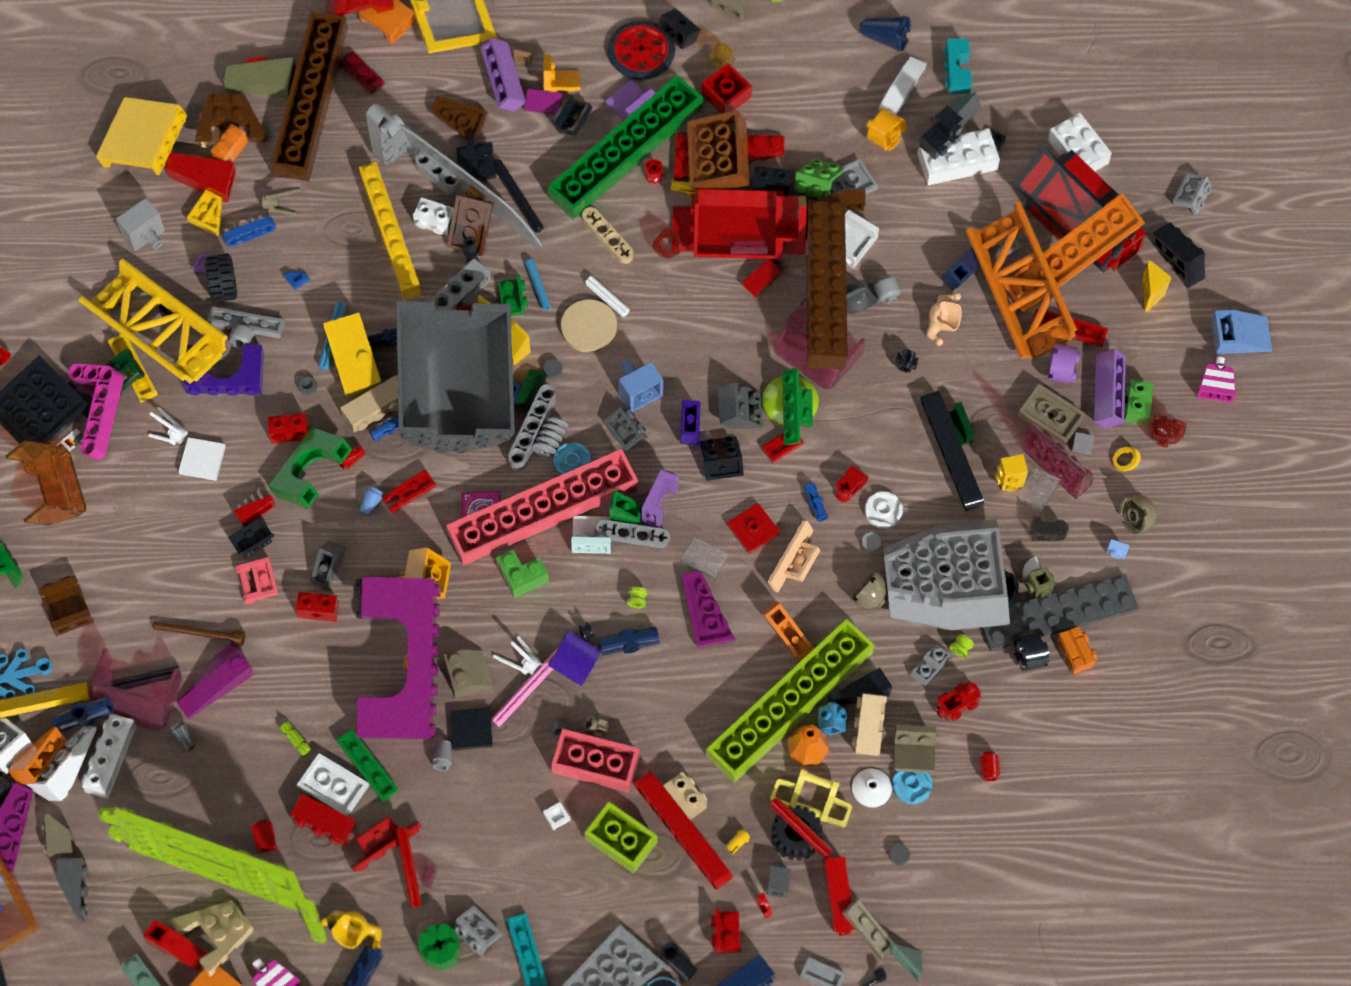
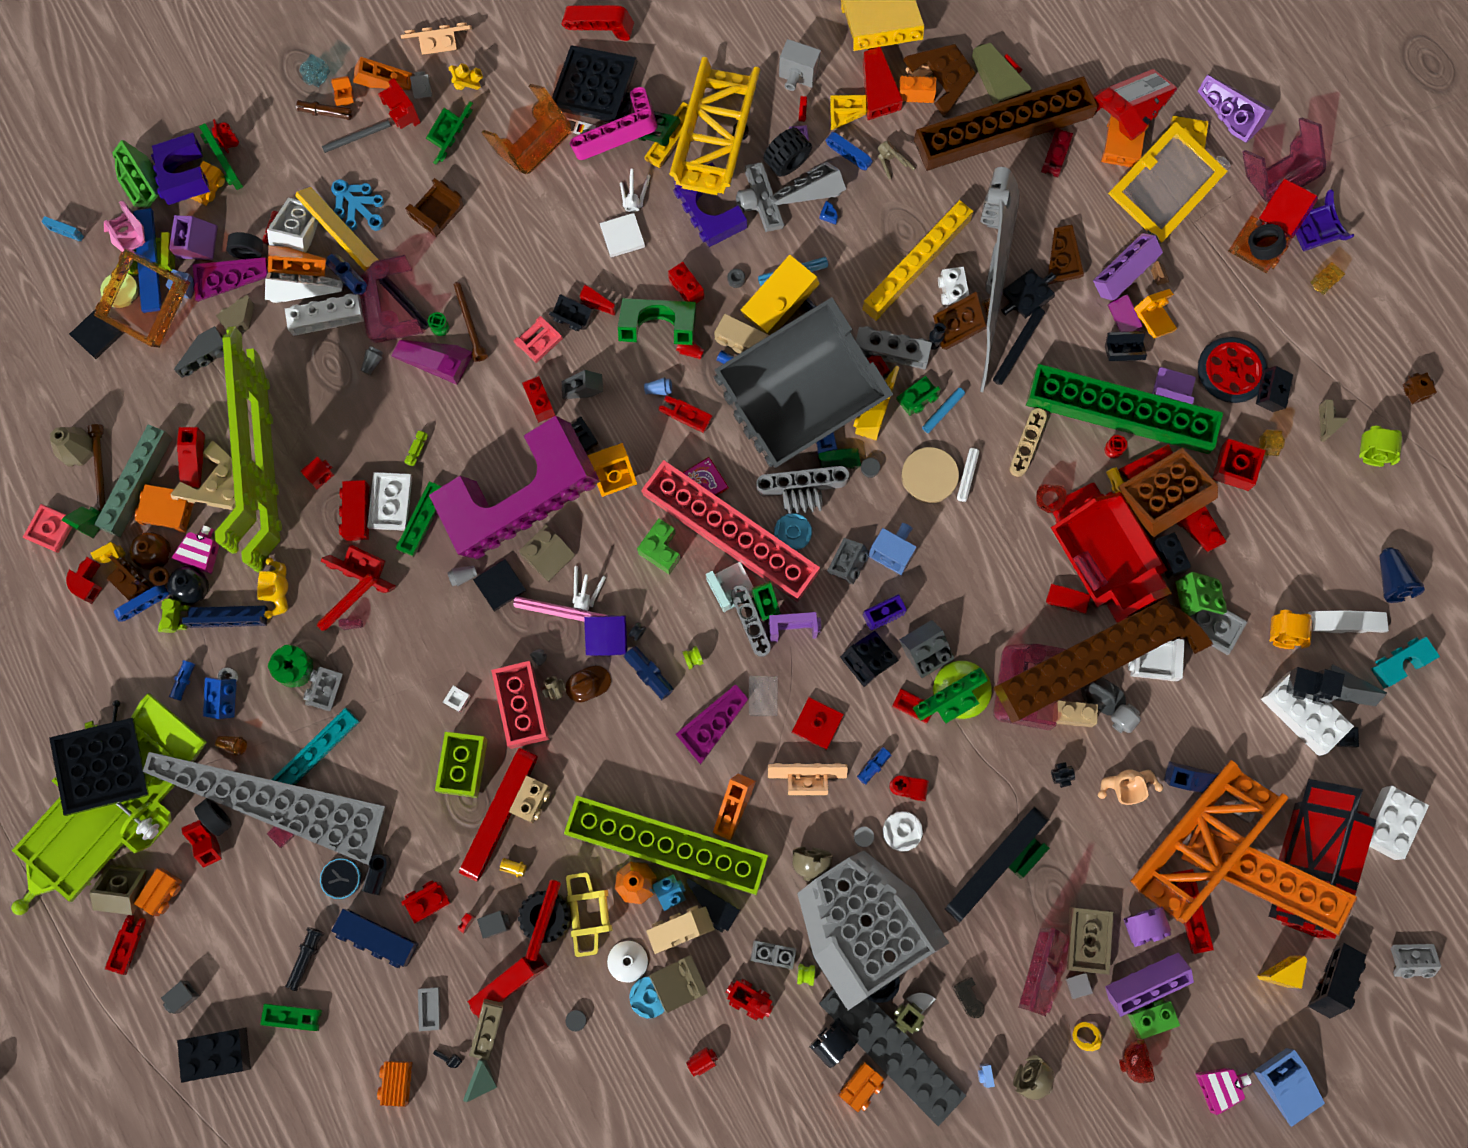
camera: 65 degrees right, 10 degrees up
(177, 241) = (802, 109): none -> red tile
(188, 662) = (440, 328): none -> green wheel
(263, 272) = (821, 183): none -> light grey wedge
(608, 698) = (588, 683): none -> reddish brown piece
(862, 323) = (1075, 713): none -> tan brick
(1011, 473) = (1003, 933): yellow brick -> none
(1038, 489) = (1005, 967): clear plate -> none

